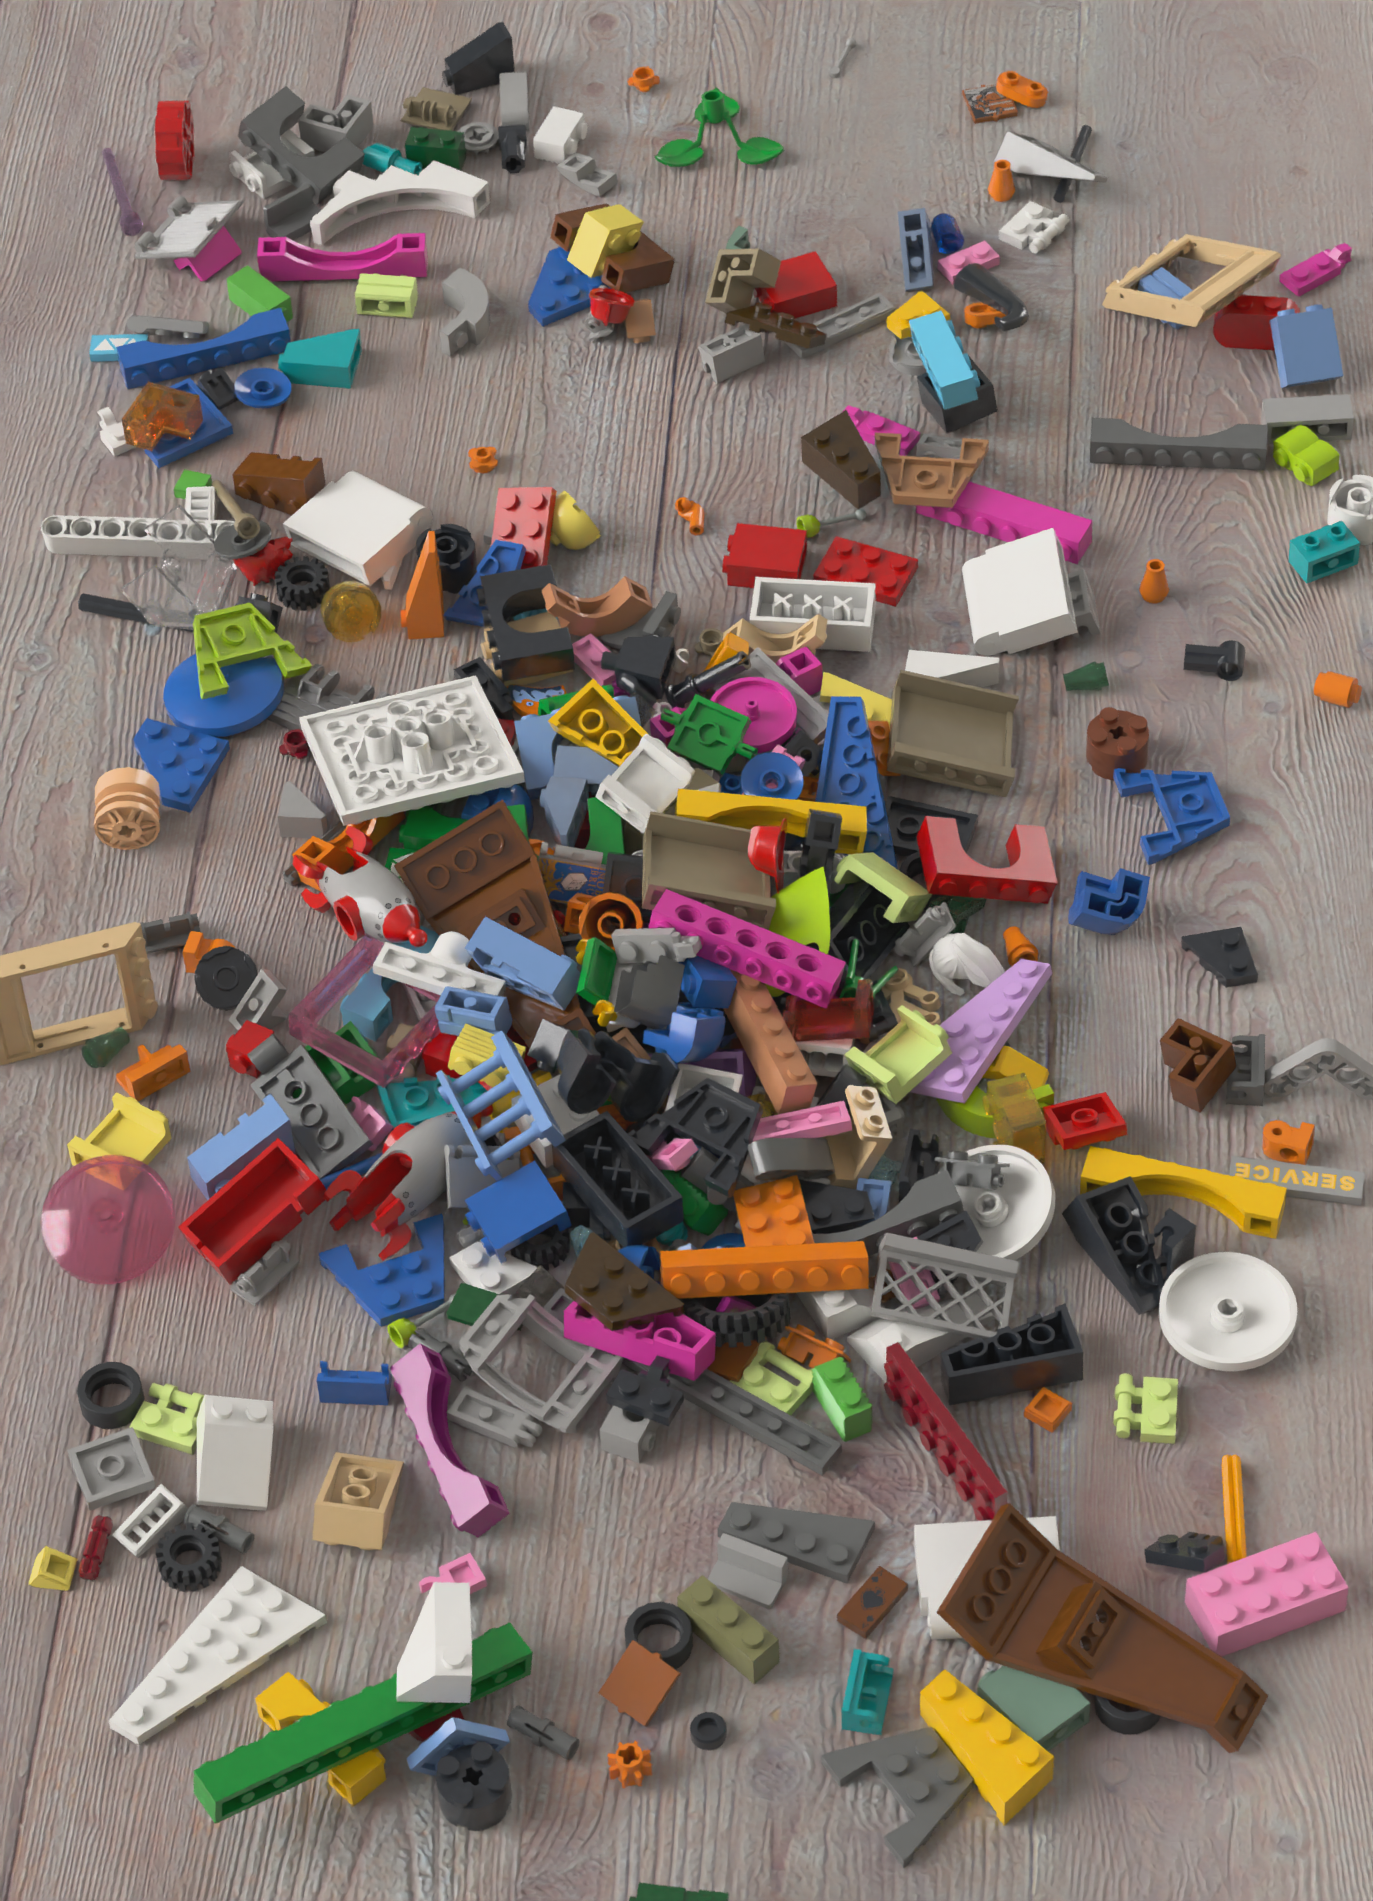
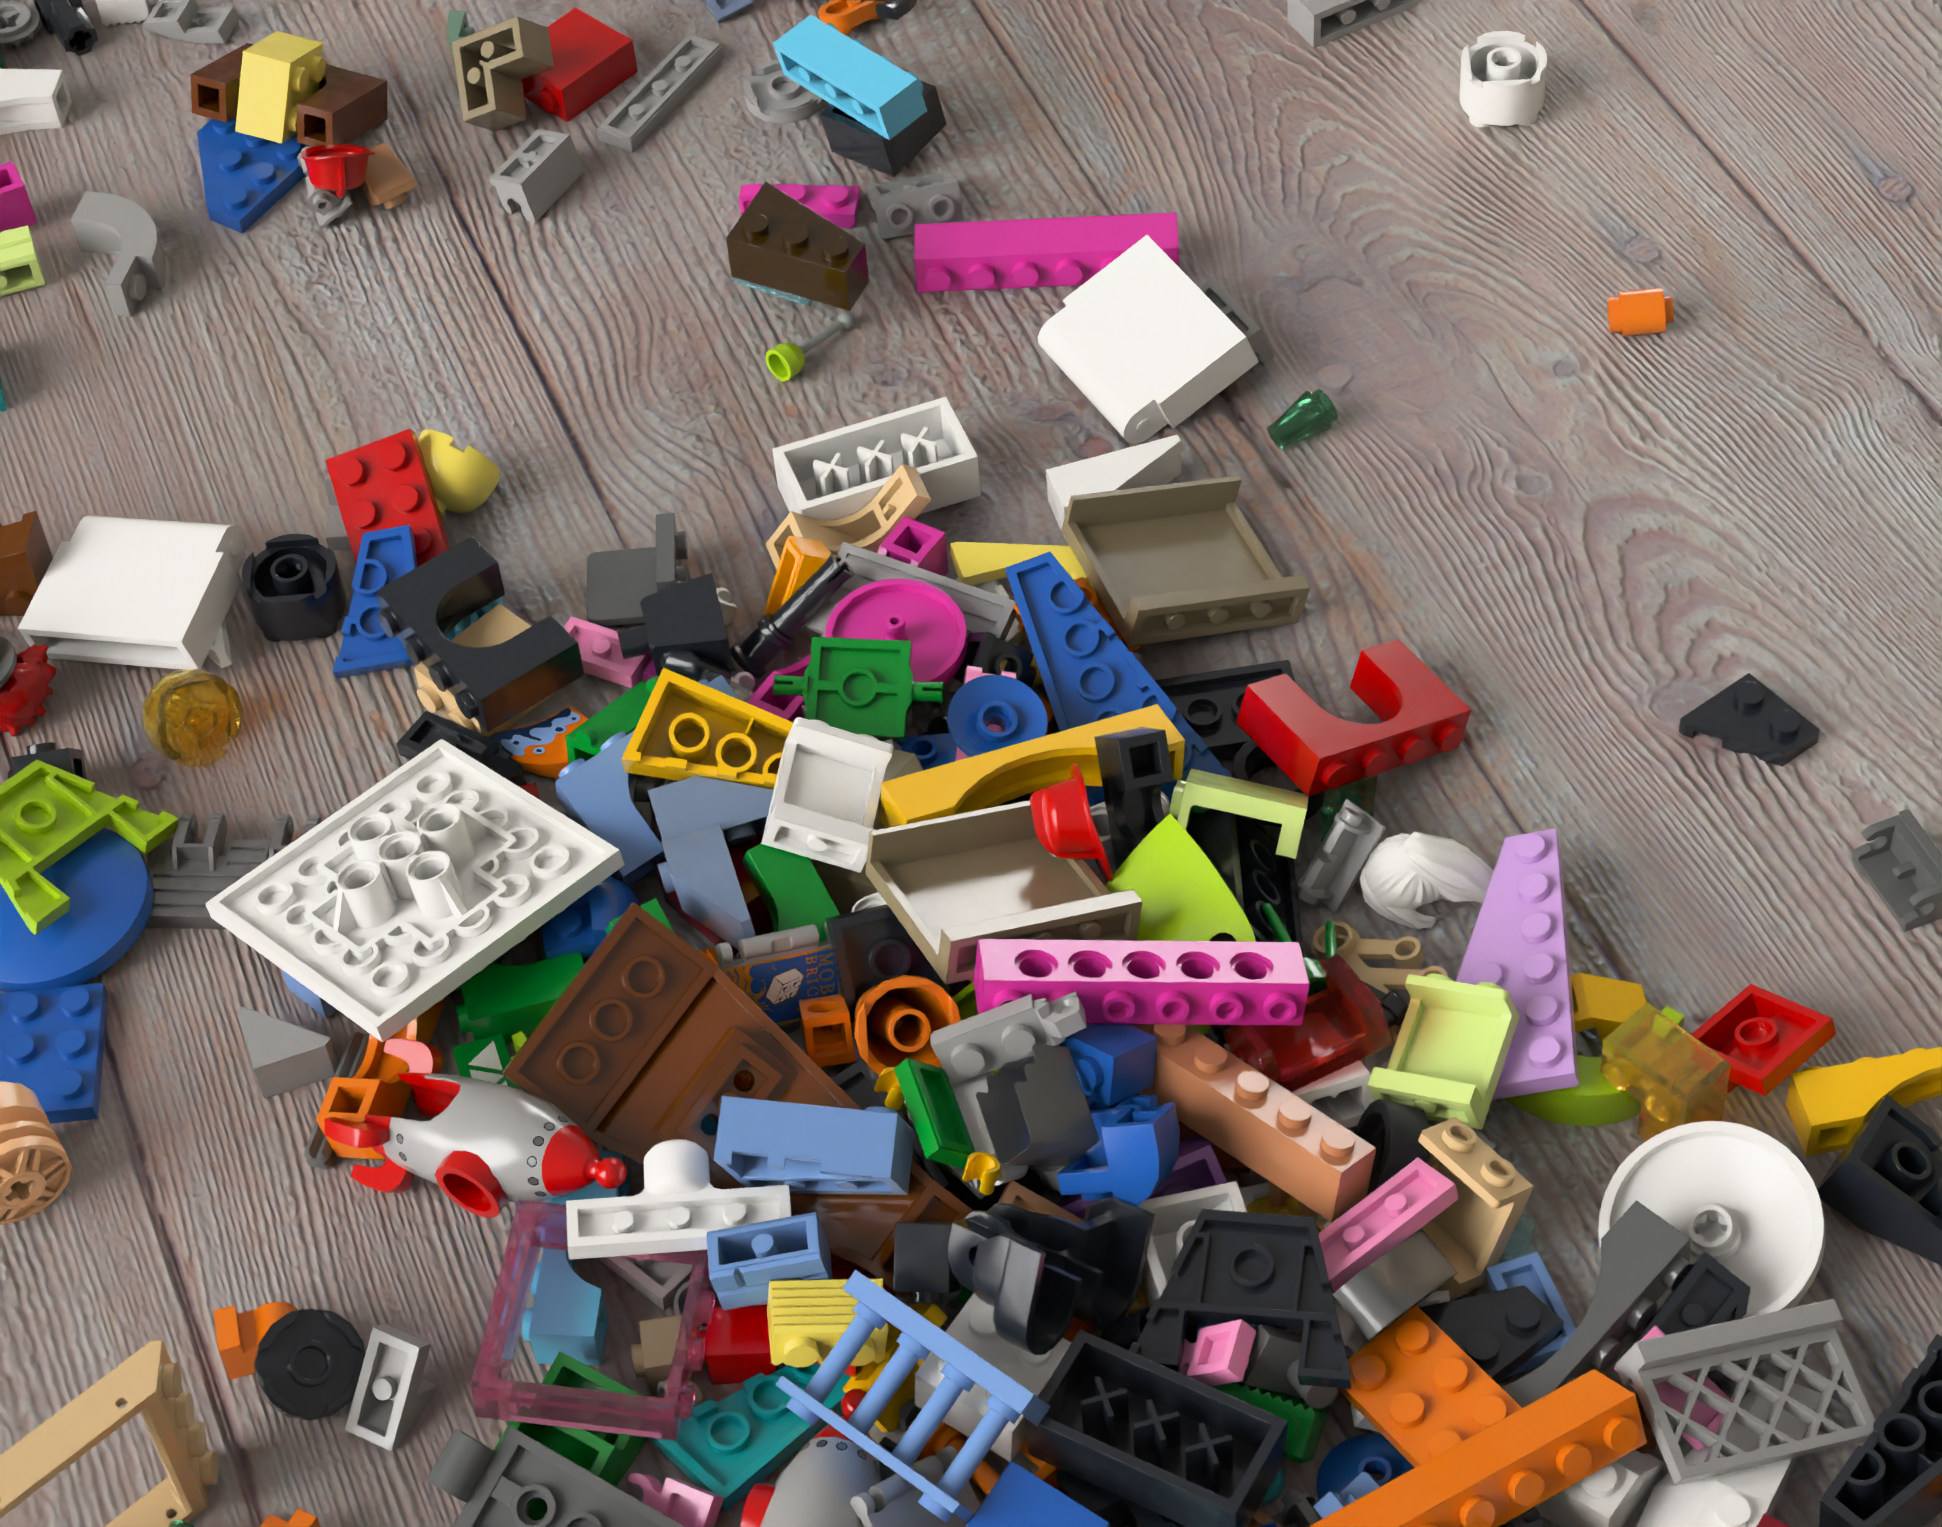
camera: 25 degrees left, 0 degrees up
(170, 934) = (179, 1324): dark grey hinge -> none
(242, 1043) = (406, 1462): red brick -> none
(294, 744) = (213, 947): dark red plate -> none
(297, 572) = (92, 724): black tyre -> none
(425, 596) = (300, 648): orange wedge -> none
(483, 459) = (263, 435): orange plate -> none
(601, 614) = (575, 582): nougat arch -> none
(691, 512) = (611, 401): orange arm -> none
(709, 641) = (750, 566): dark tan plate -> none
(764, 553) = (751, 417): red brick -> none
(765, 320) = (564, 116): dark brown wing -> none
(864, 563) = (893, 382): red plate -> none
(916, 307) = (752, 46): yellow wing -> none
(918, 1161) = (1561, 1218): black hinge -> none
(928, 479) = (920, 237): medium nougat wing -> none
(984, 1170) = (1681, 1174): dark grey hinge -> none
(1018, 946) = (1474, 826): orange cone -> none
(1108, 904) = (1560, 711): blue brick -> none
(1117, 741) = (1410, 490): copper brick -> none
(1154, 582) = (1307, 265): orange cone -> none
(1187, 803) = (1556, 535): blue wing -> none
(1199, 1063) = (1842, 878): reddish brown brick -> none
(1224, 660) = (1466, 328): black piece -> none
(1235, 448) = (1139, 106): dark grey arch -> none
(1305, 455) = (1384, 40): lime brick -> none
(1324, 552) = (1498, 146): teal brick -> none

